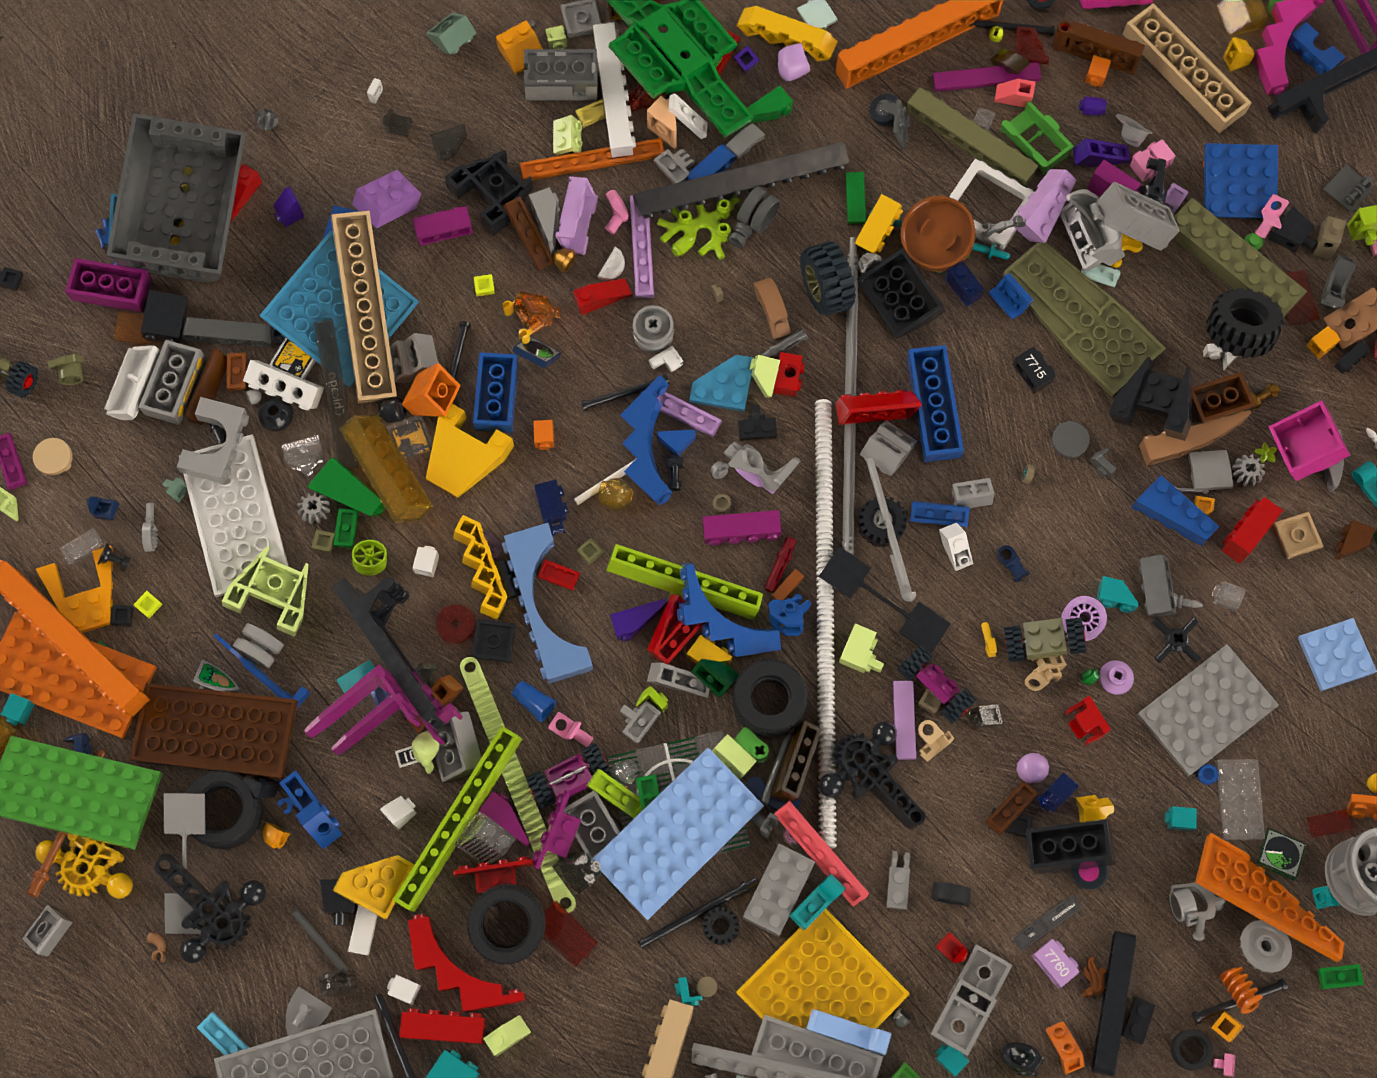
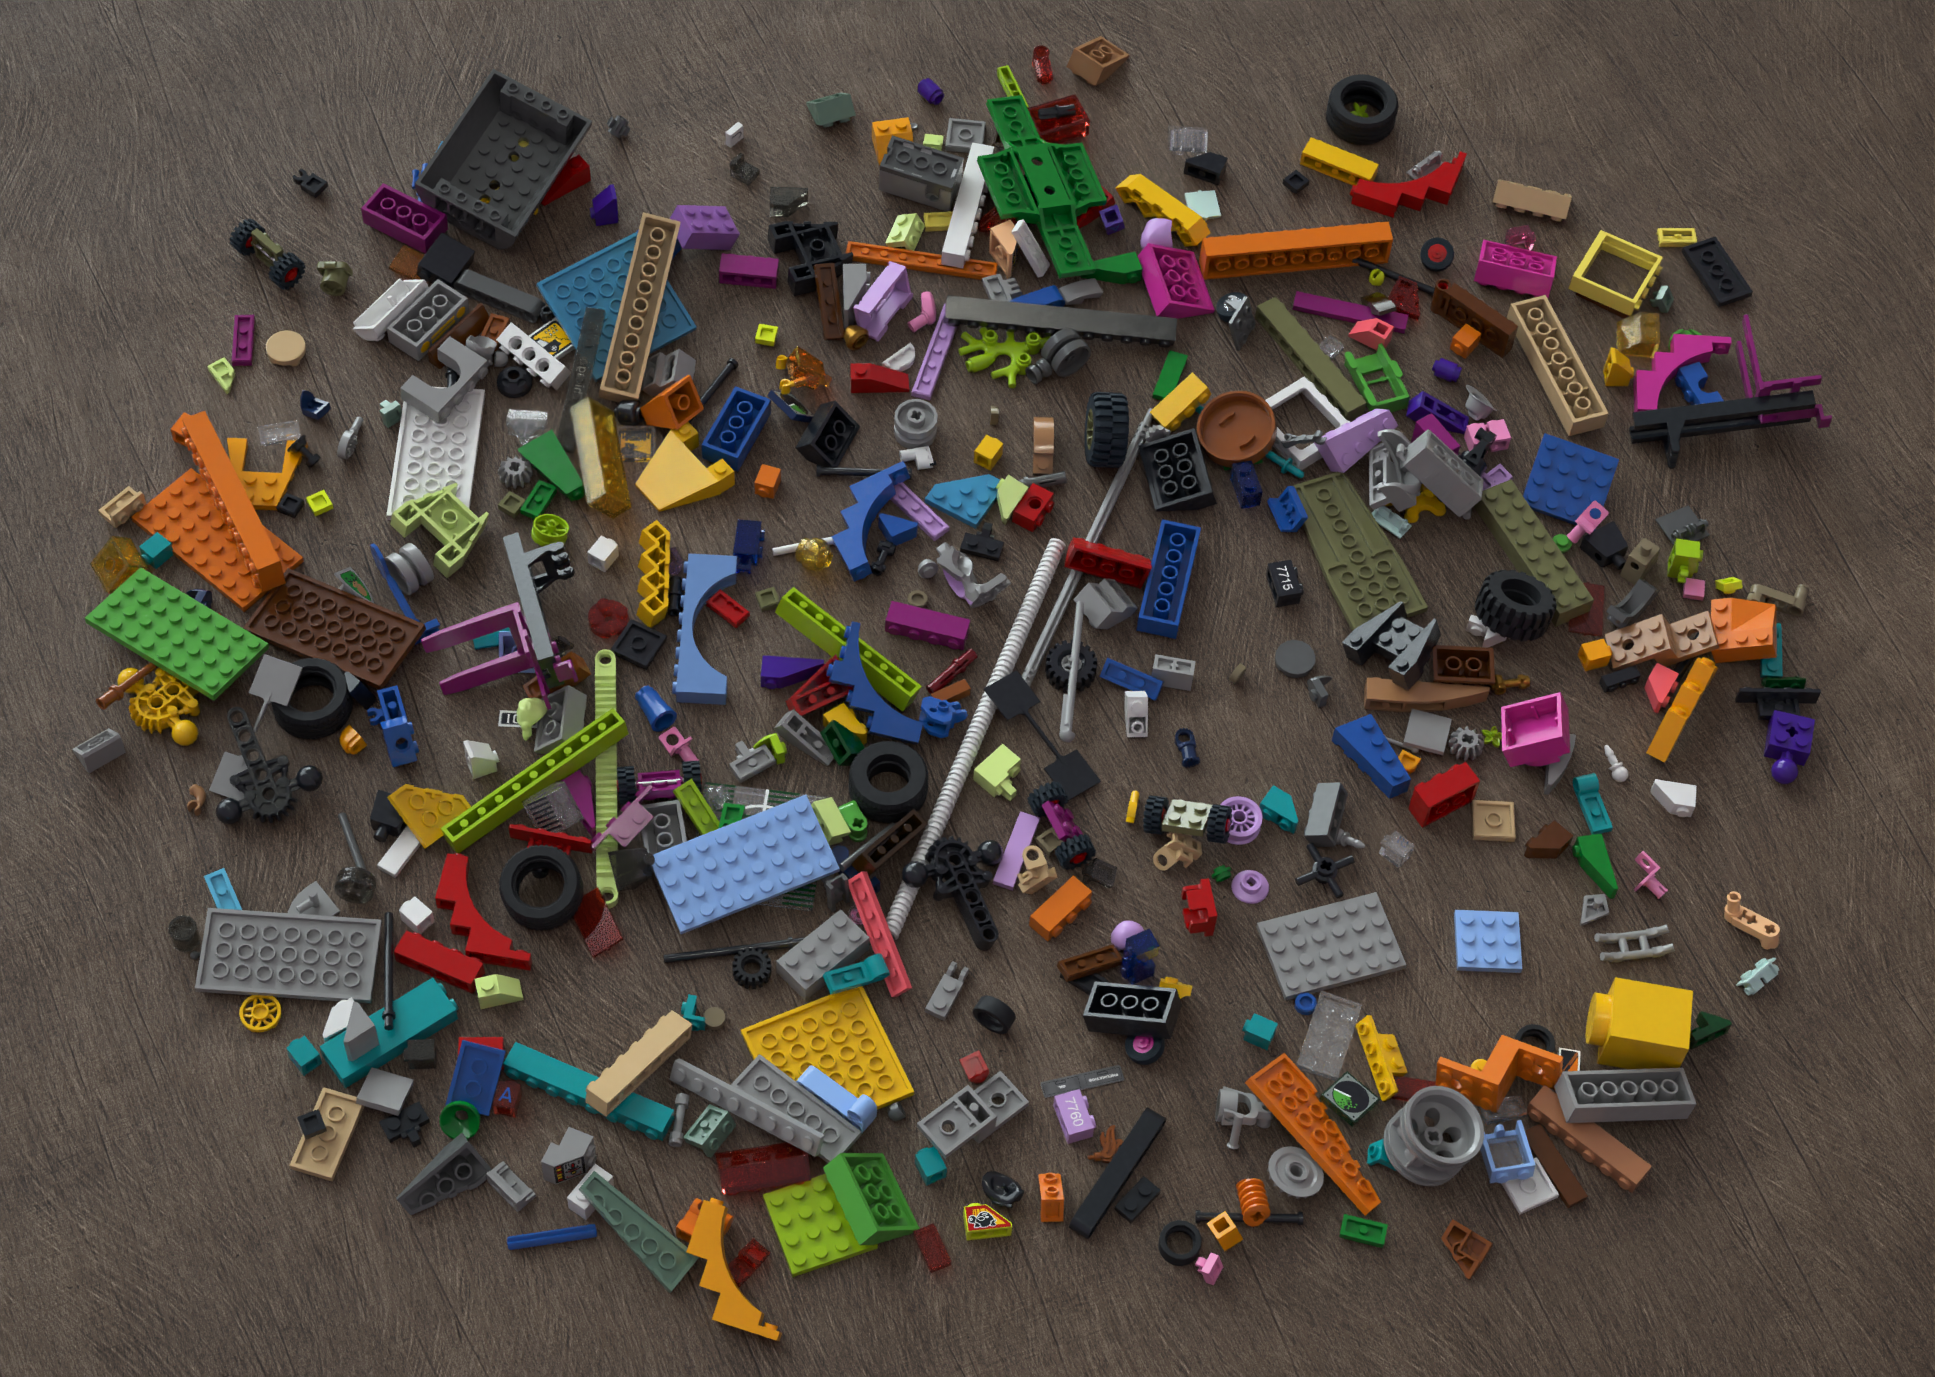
camera: 15 degrees right, 15 degrees down
(233, 394) = (482, 346): none -> light grey hair
(579, 368) = (828, 435): none -> black slope
(727, 333) = (988, 452): none -> yellow brick
(824, 102) = (1174, 282): none -> dark pink slope
(966, 764) = (1061, 908): none -> orange brick
(1293, 802) = (1383, 1057): none -> yellow bracket

